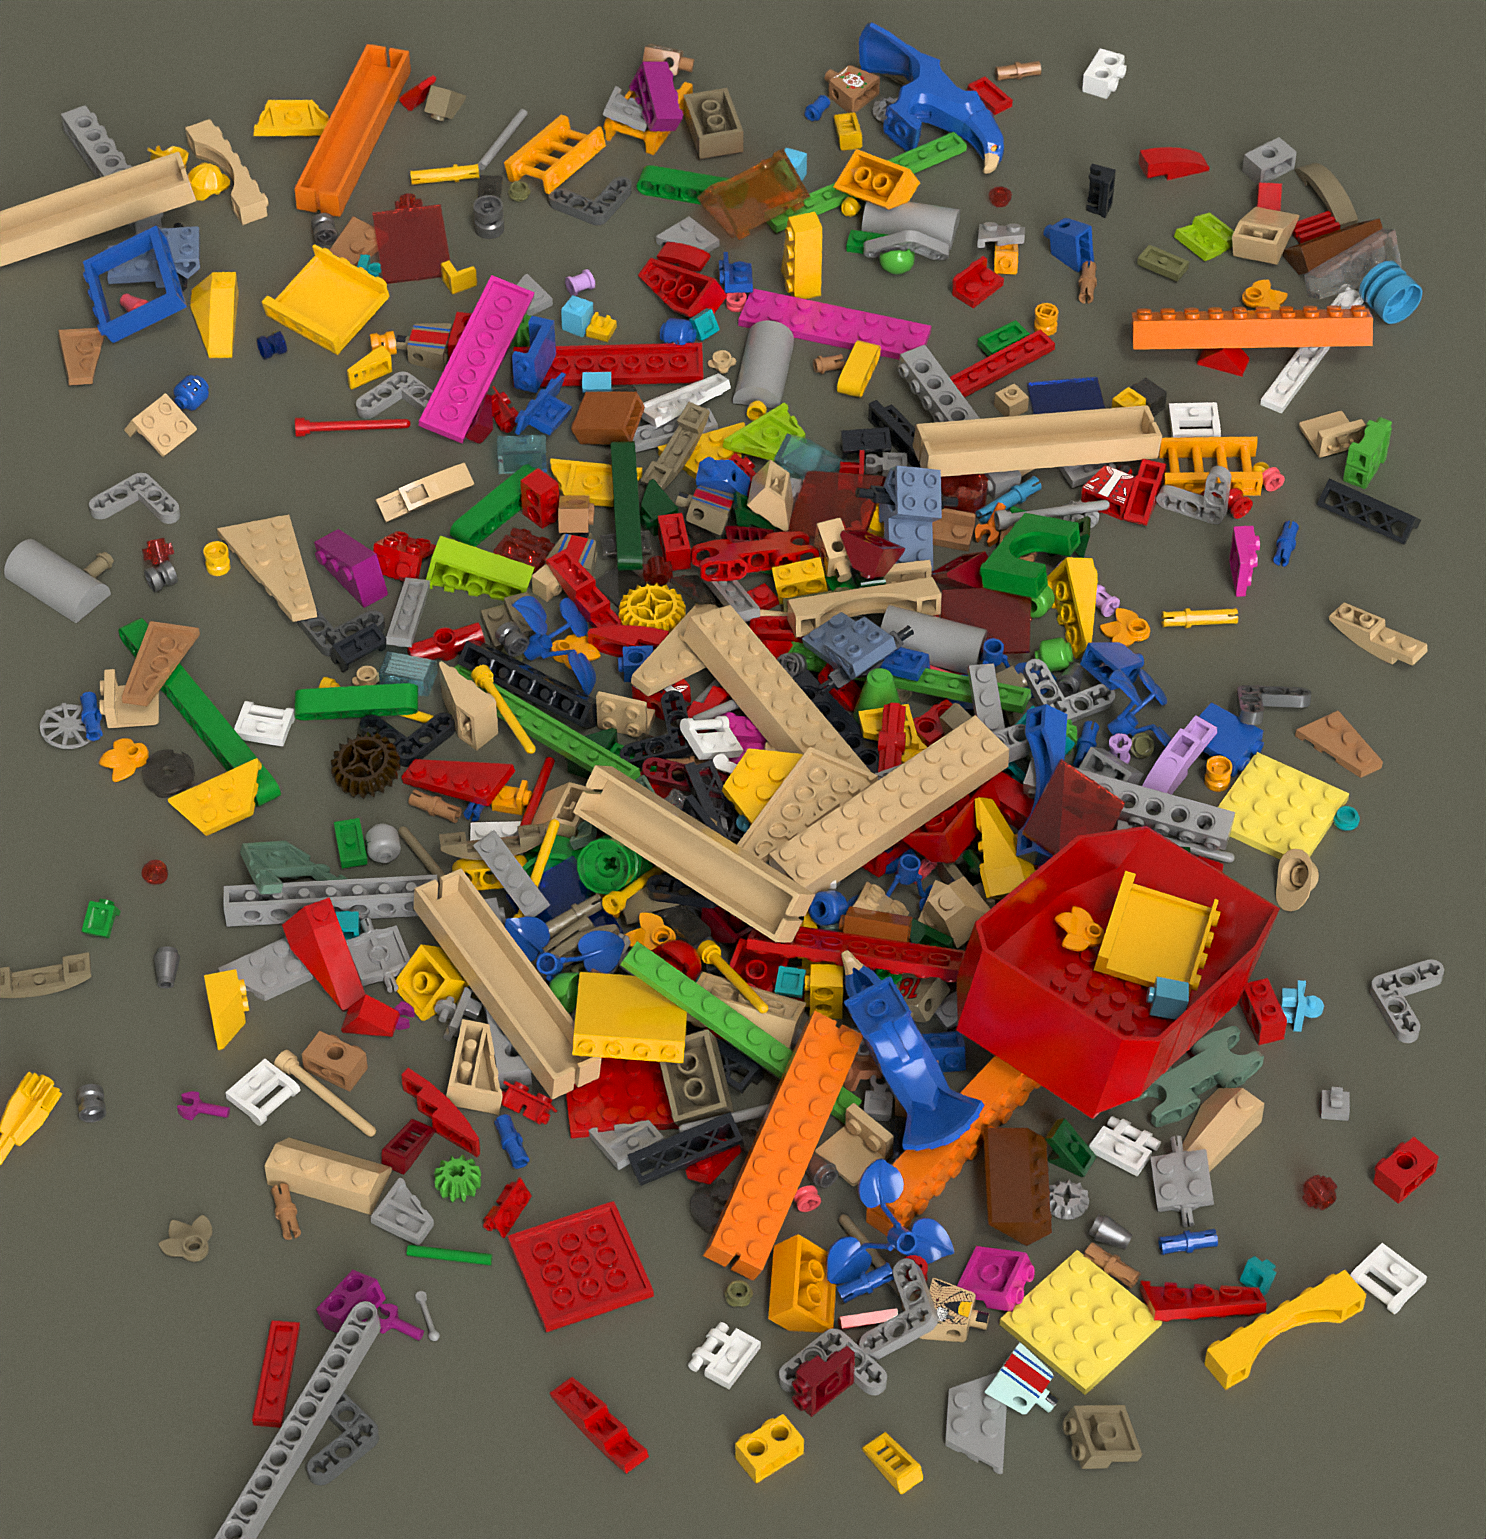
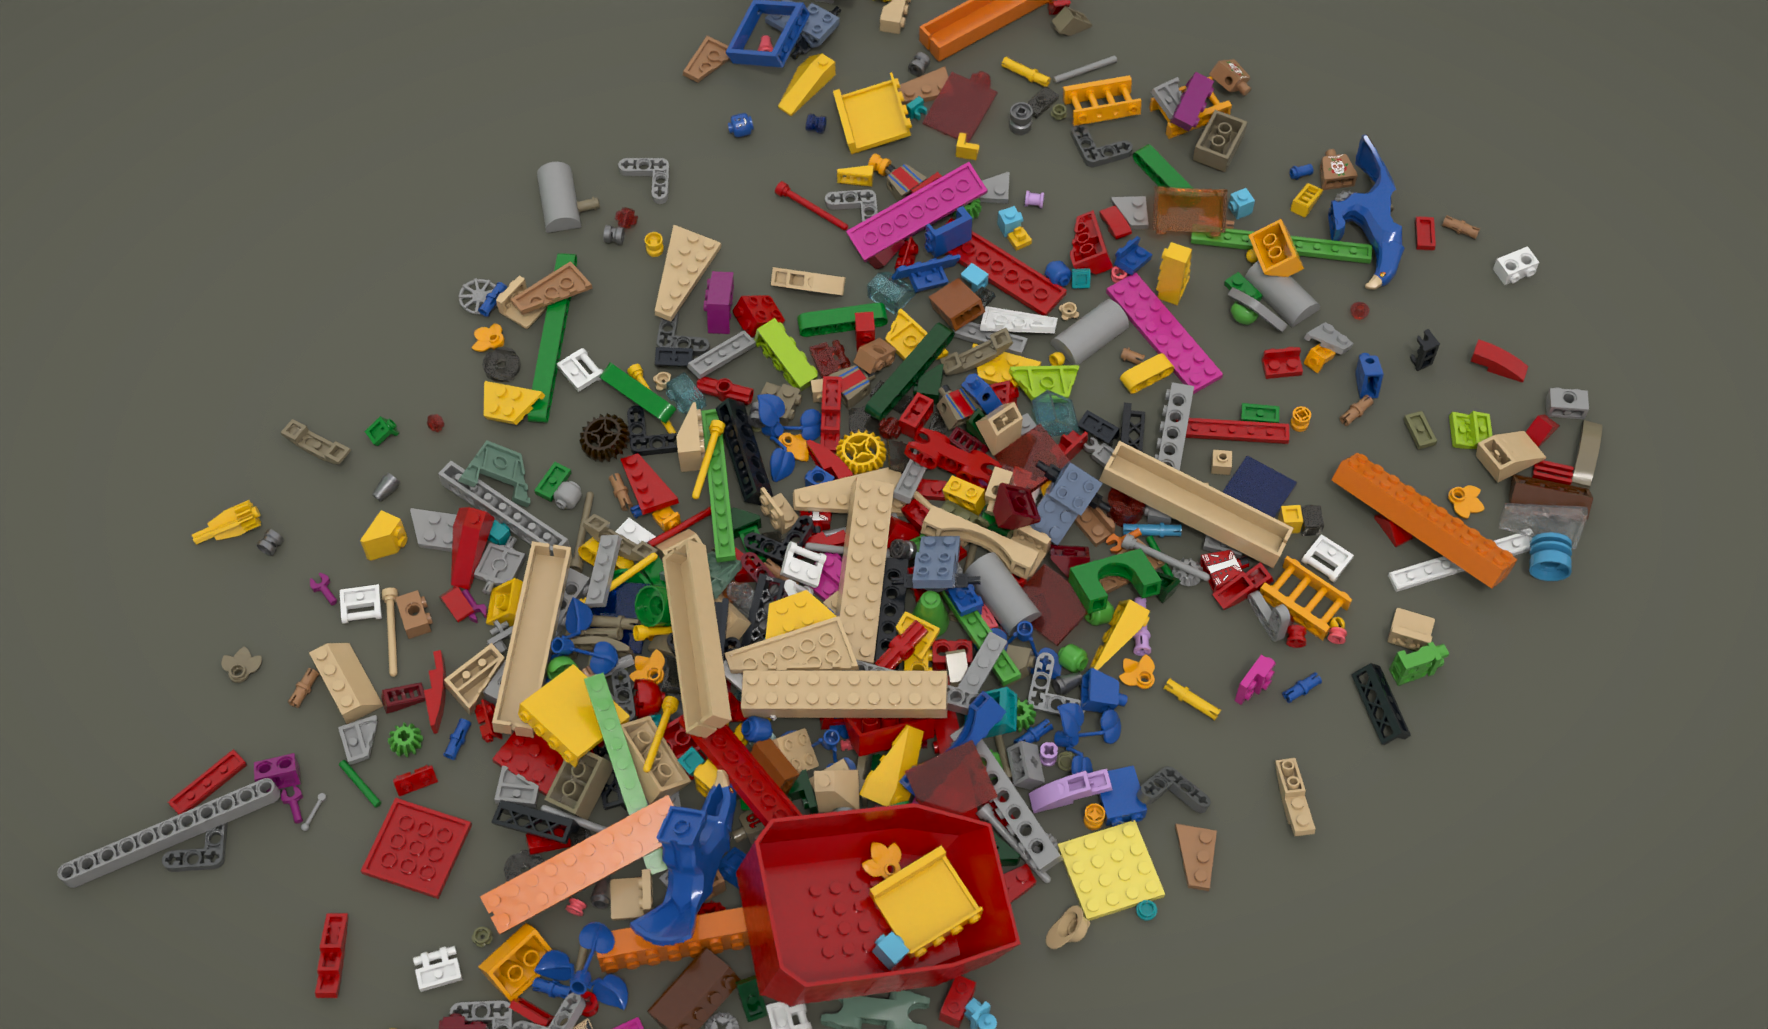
camera: 40 degrees right, 10 degrees up
(162, 425) = (706, 136): tan bracket -> none

